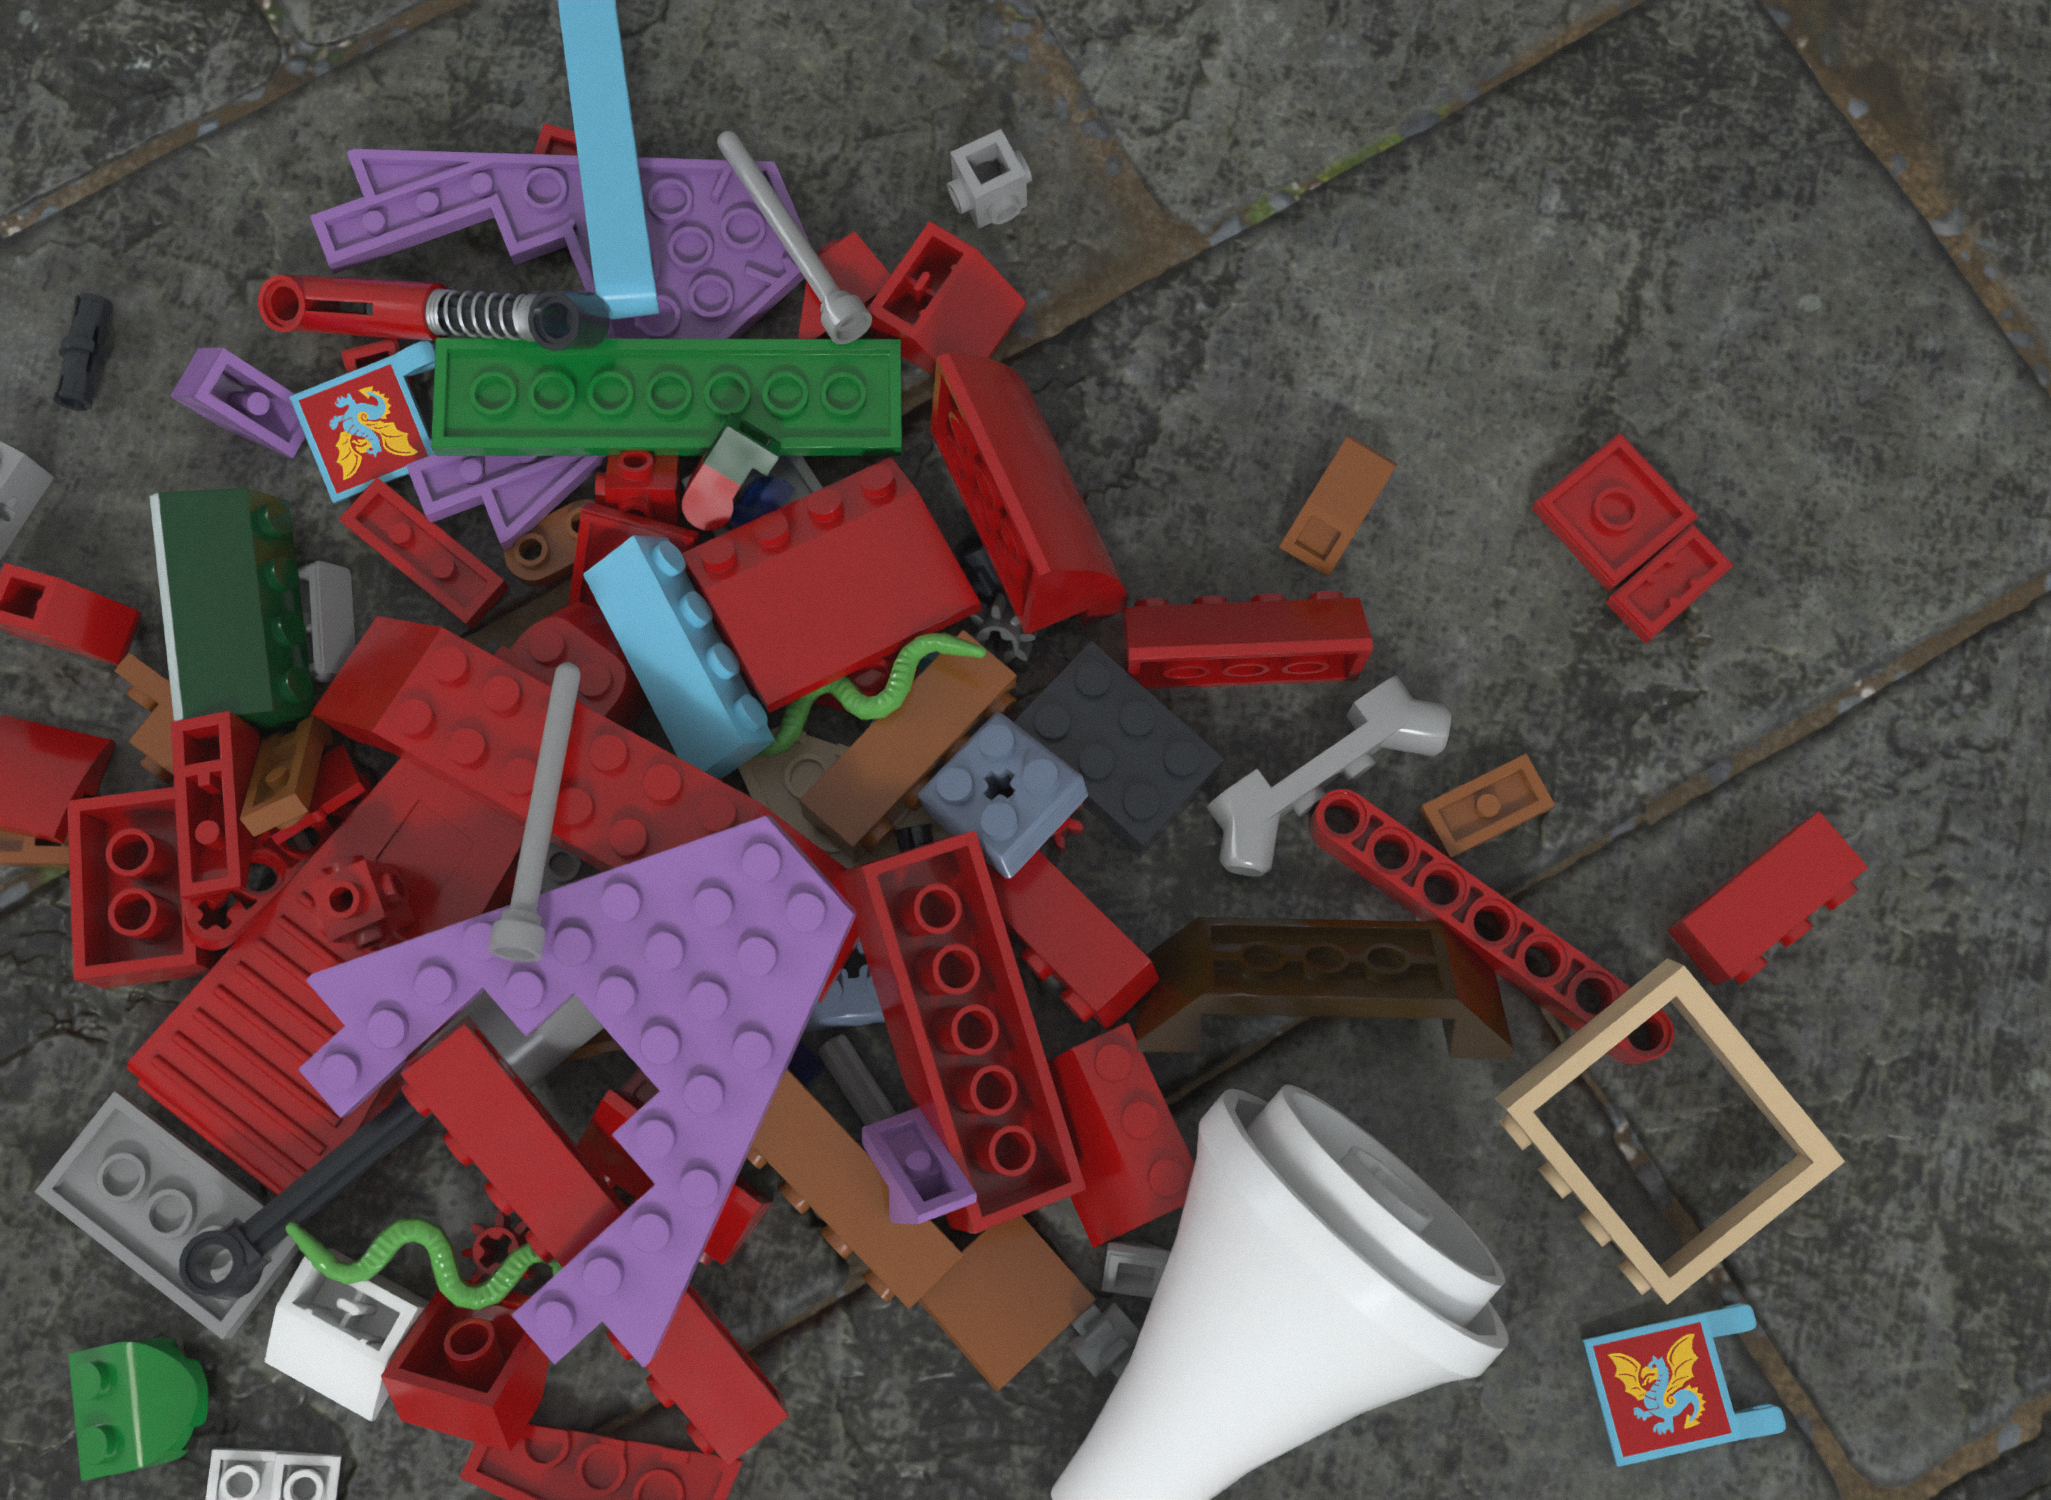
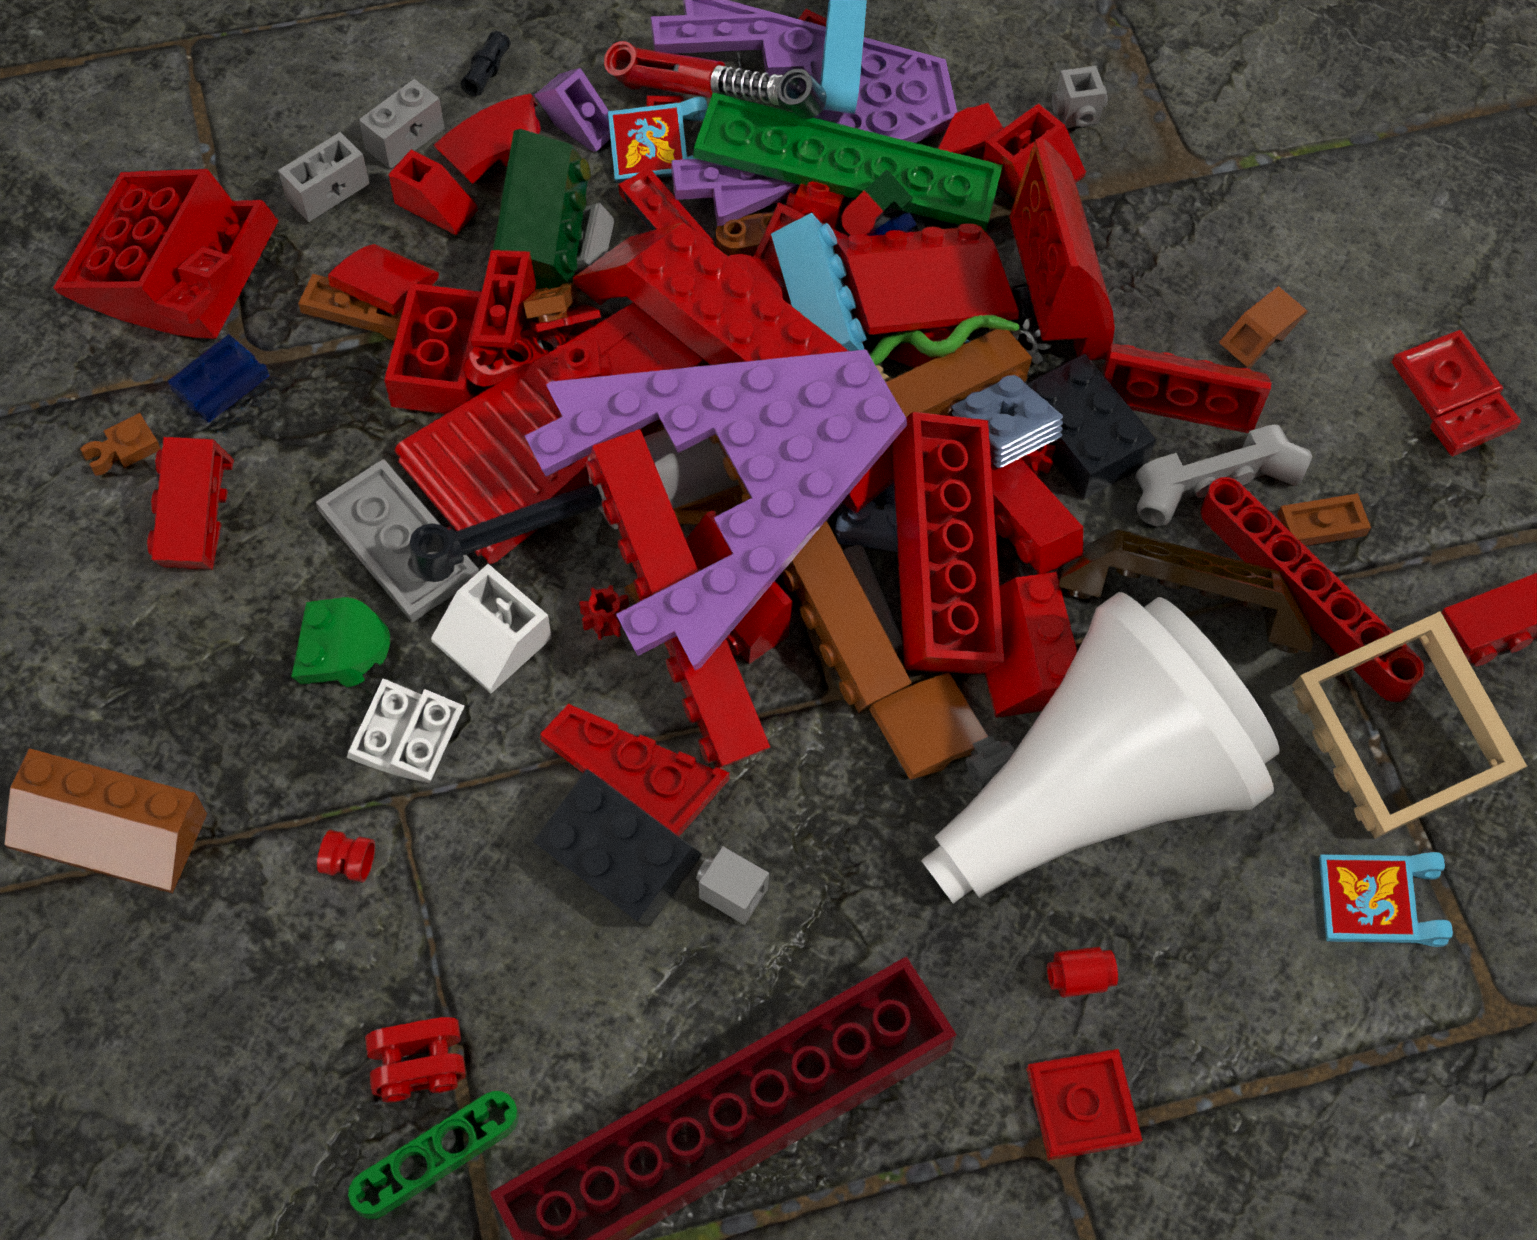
camera: 10 degrees right, 15 degrees down
(107, 498) = (488, 135): none -> red slope
(154, 735) = (475, 251): dark orange slope -> none
(441, 1257) = (572, 590): bright green animal -> none
(468, 1372) = (571, 664): red slope -> none
(519, 931) = (694, 374): light grey piece -> none
(842, 314) = (970, 137): light grey piece -> none
(916, 1168) = (901, 612): medium lavender slope -> none
(1134, 1267) = (1016, 725): light grey slope -> none

